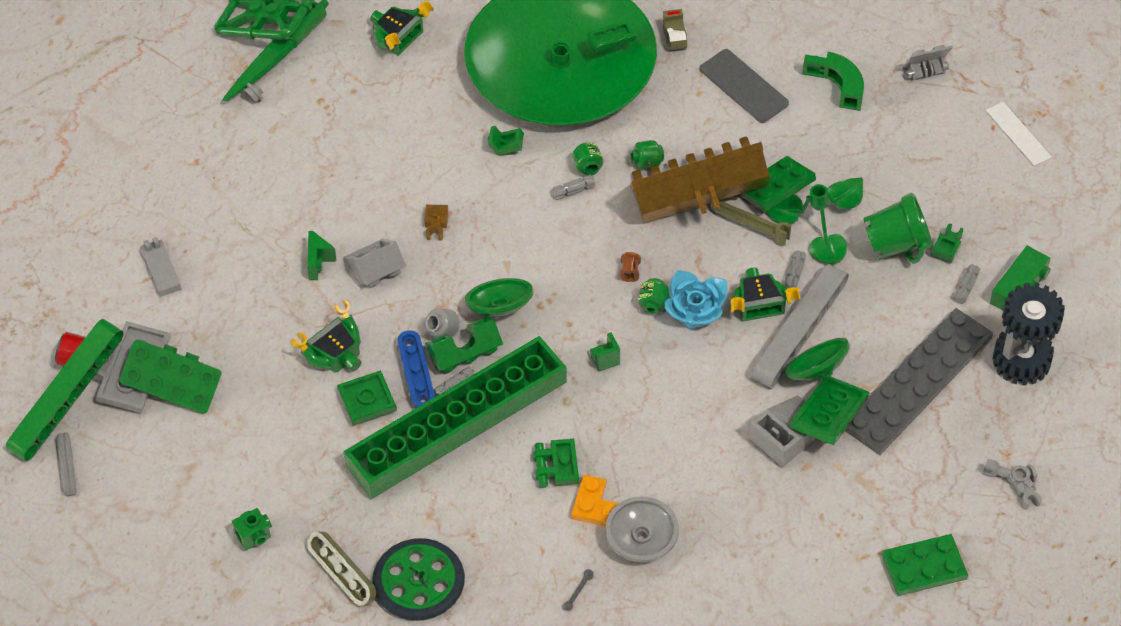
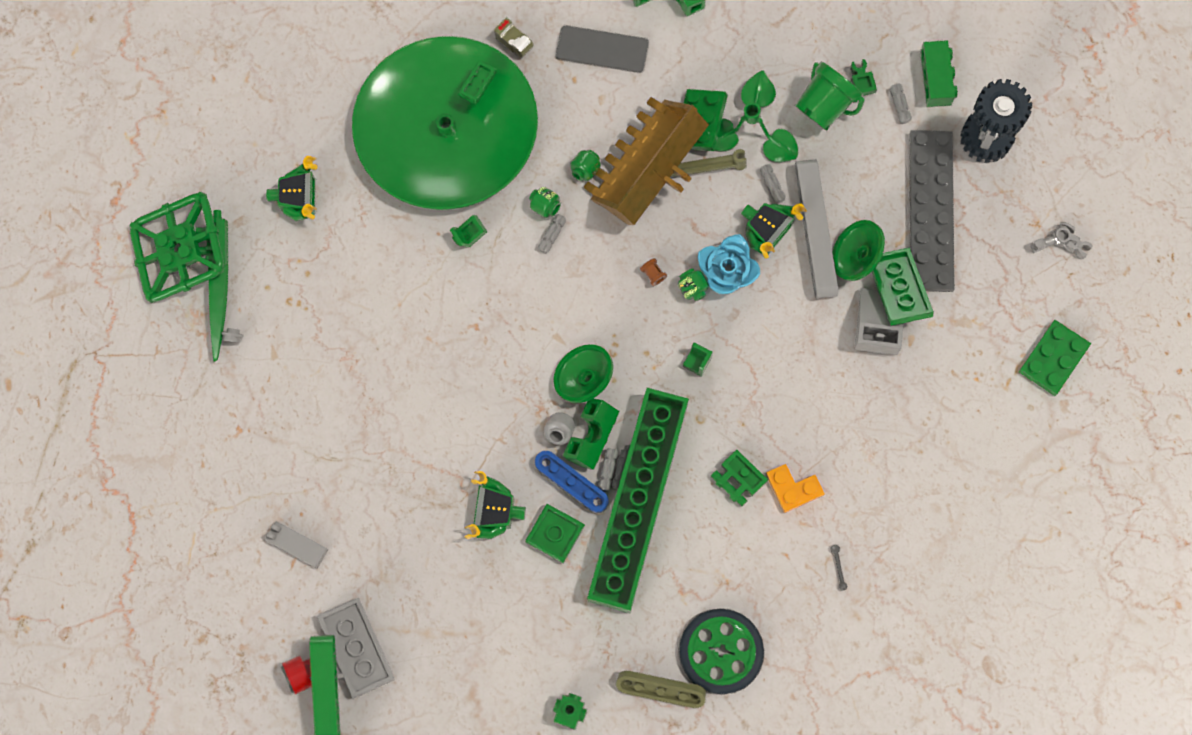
camera: 35 degrees left, 20 degrees up
(171, 375) = (395, 634): green bracket -> none
(318, 252) = (408, 437): green slope -> none
(376, 261) = (460, 412): light grey slope -> none
(435, 220) = (471, 339): pearl gold plate -> none
(642, 518) = (857, 474): light grey dish -> none

